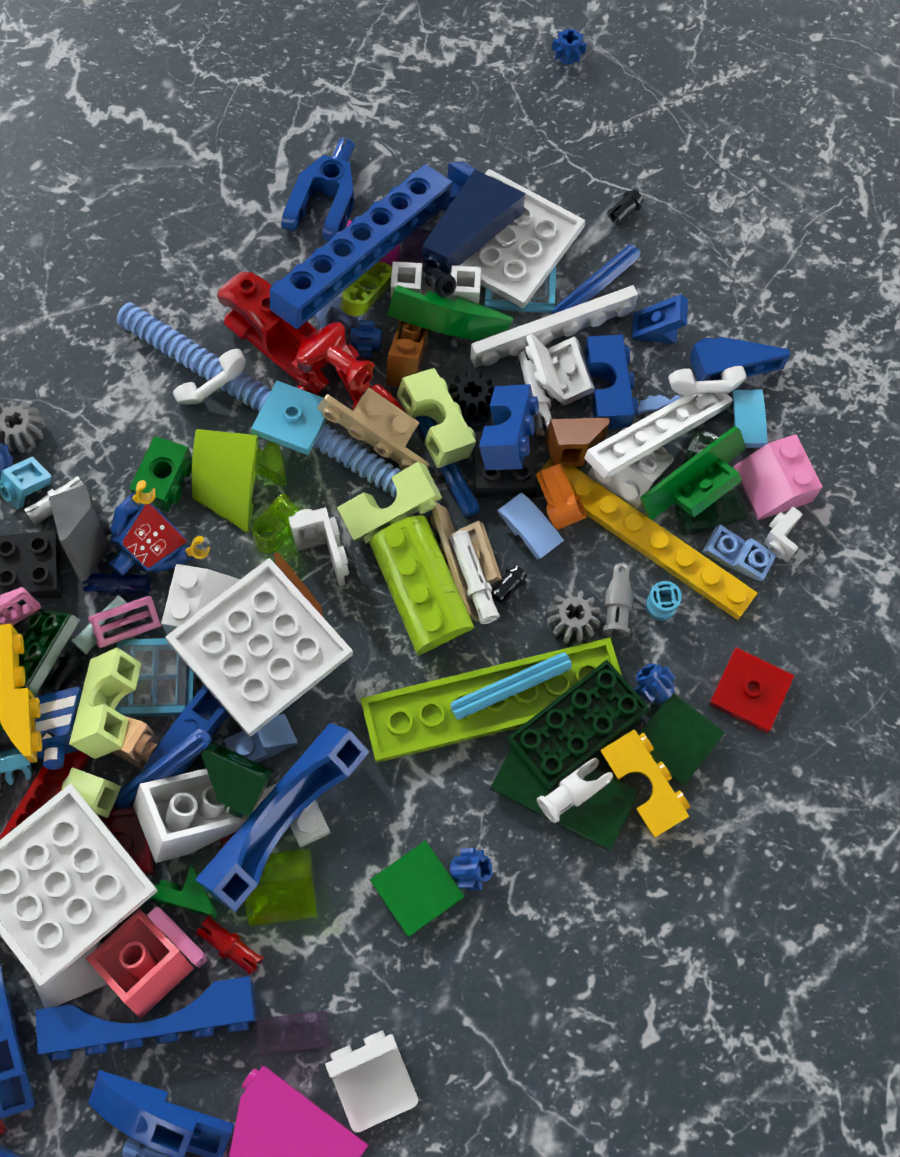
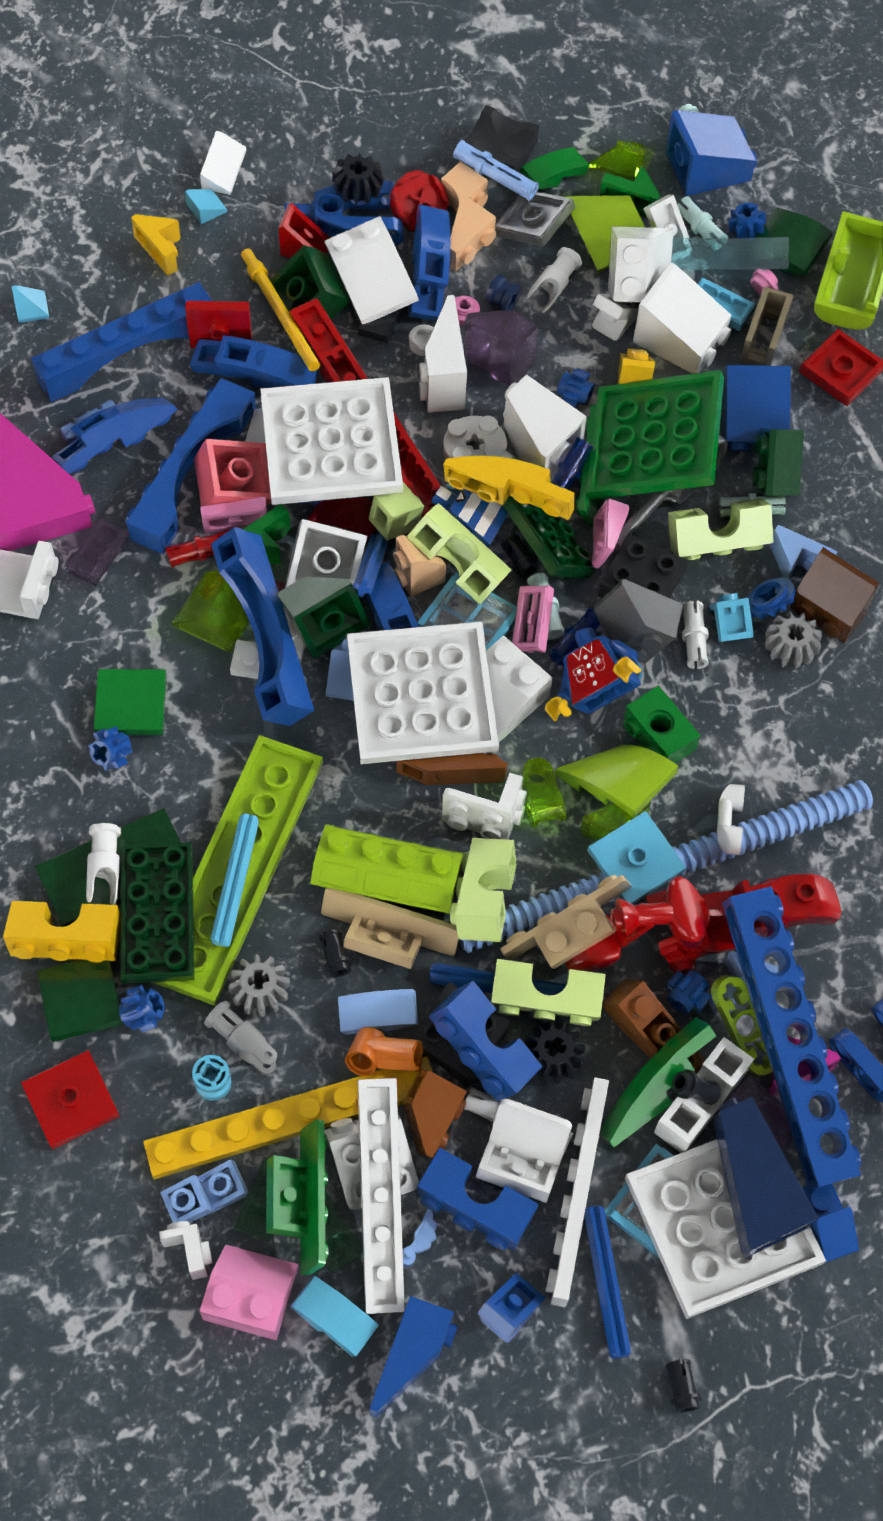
camera: 125 degrees right, 5 degrees down
(478, 589) = (399, 927): white pin -> none
(683, 381) = (386, 1323): white bar -> none

